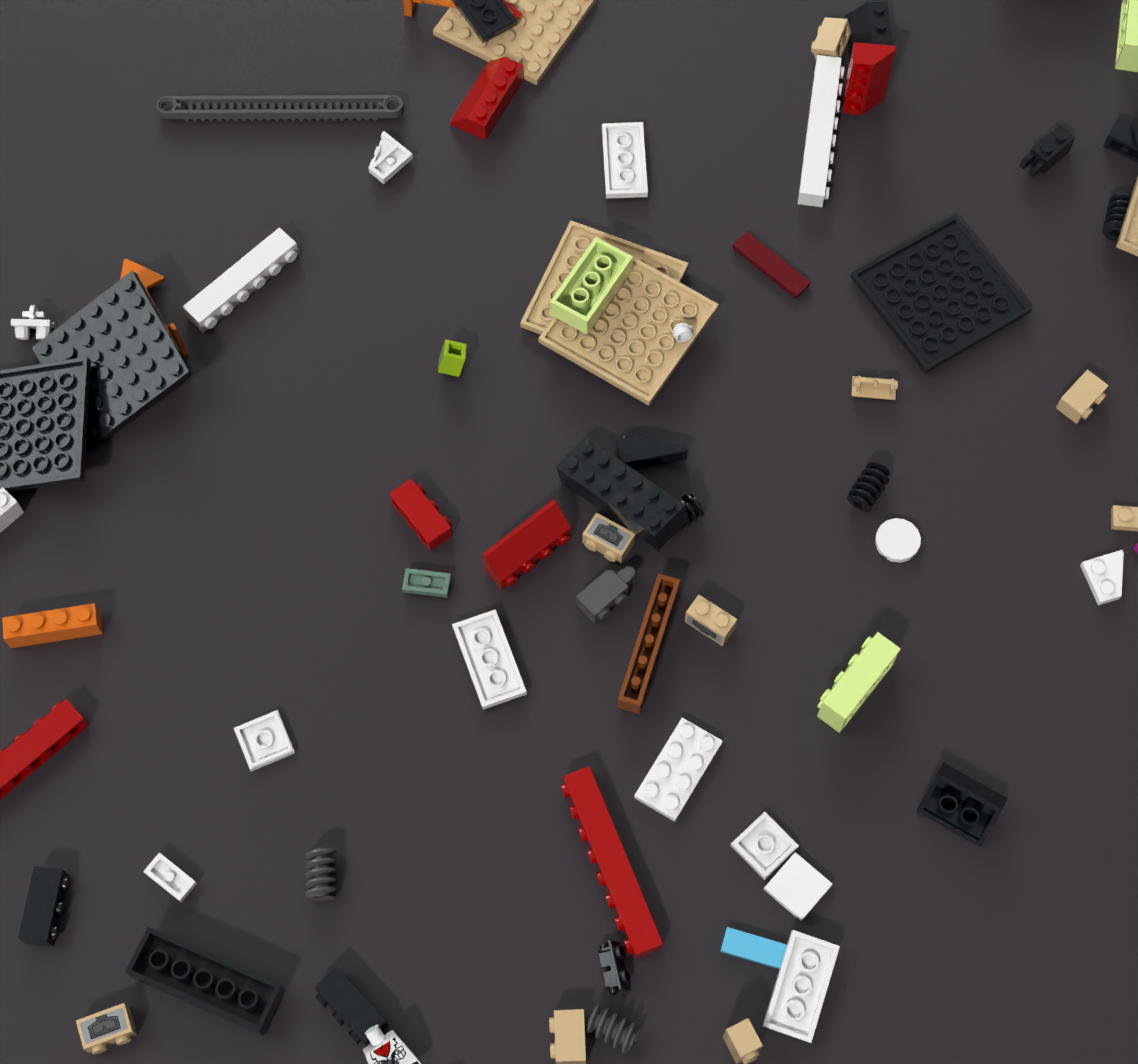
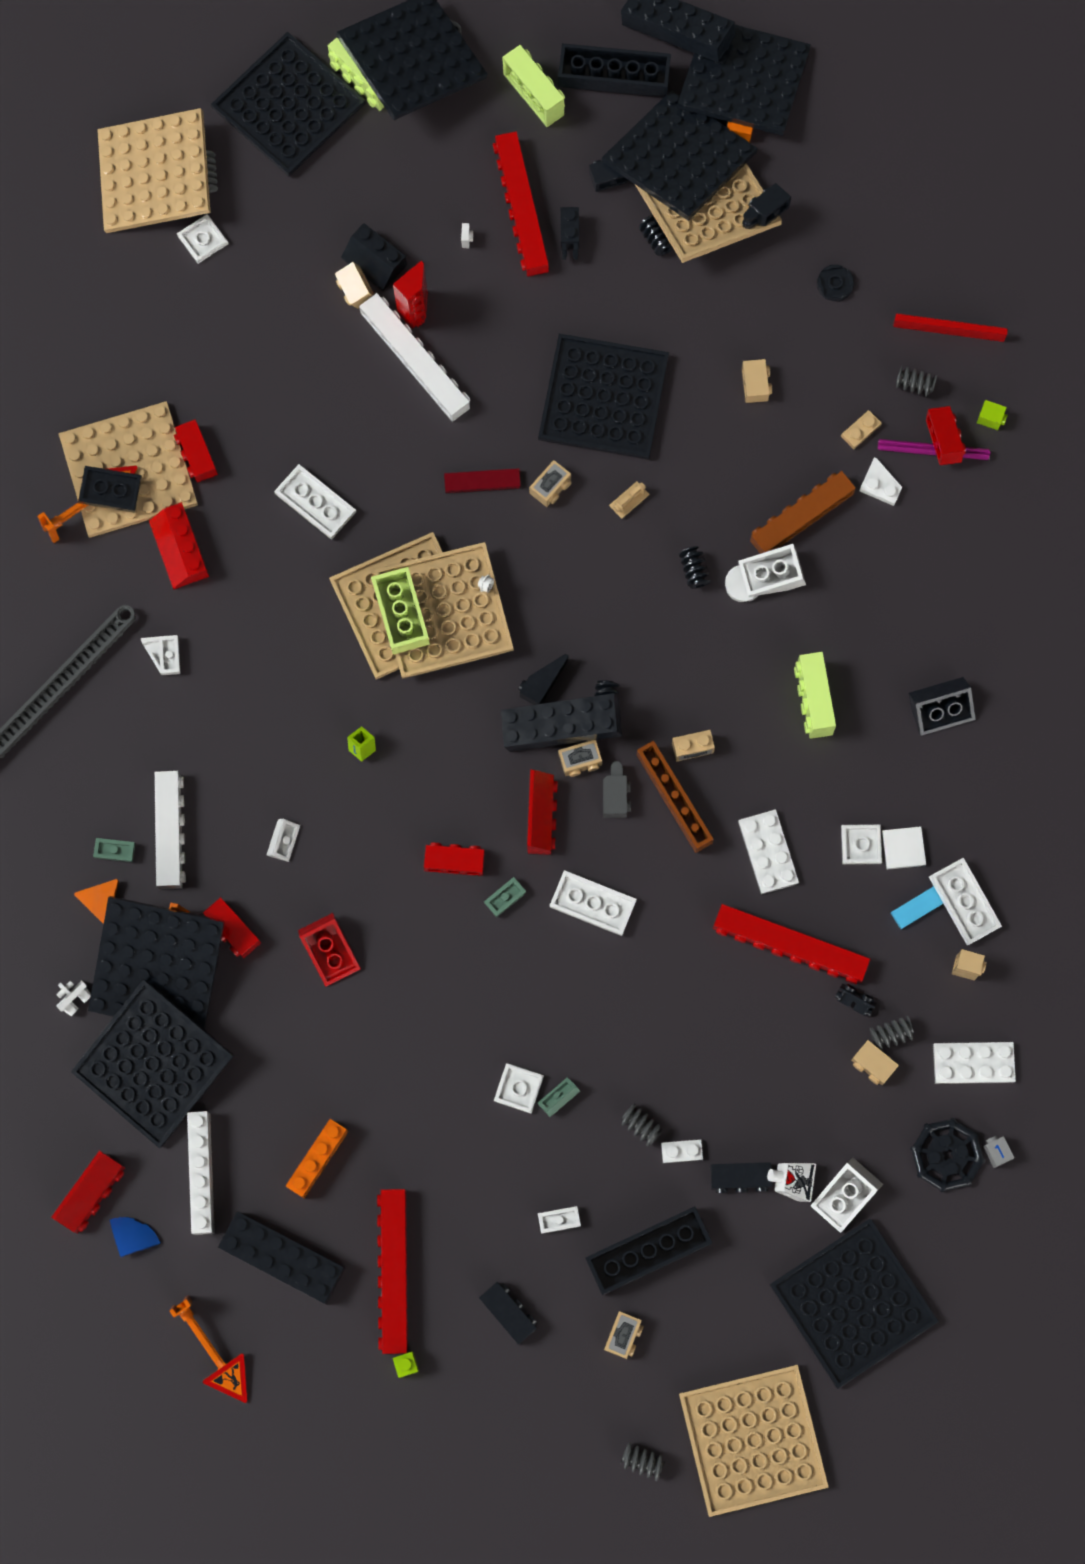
camera: 45 degrees left, 10 degrees up
(188, 256) = (114, 850): none -> sand green plate
(200, 394) = (234, 931): none -> red brick
(249, 482) = (329, 949): none -> red slope
(284, 780) = (558, 1097): none -> sand green plate
(315, 372) = (283, 840): none -> white slope
(329, 933) = (681, 1151): none -> white plate
(577, 45) = (195, 451): none -> red brick
(822, 315) = (550, 484): none -> brick
(932, 552) = (772, 571): none -> white slope
(960, 83) = (467, 235): none -> white plate
(1009, 534) = (802, 514): none -> dark orange brick
(1030, 101) = (521, 204): none -> red brick

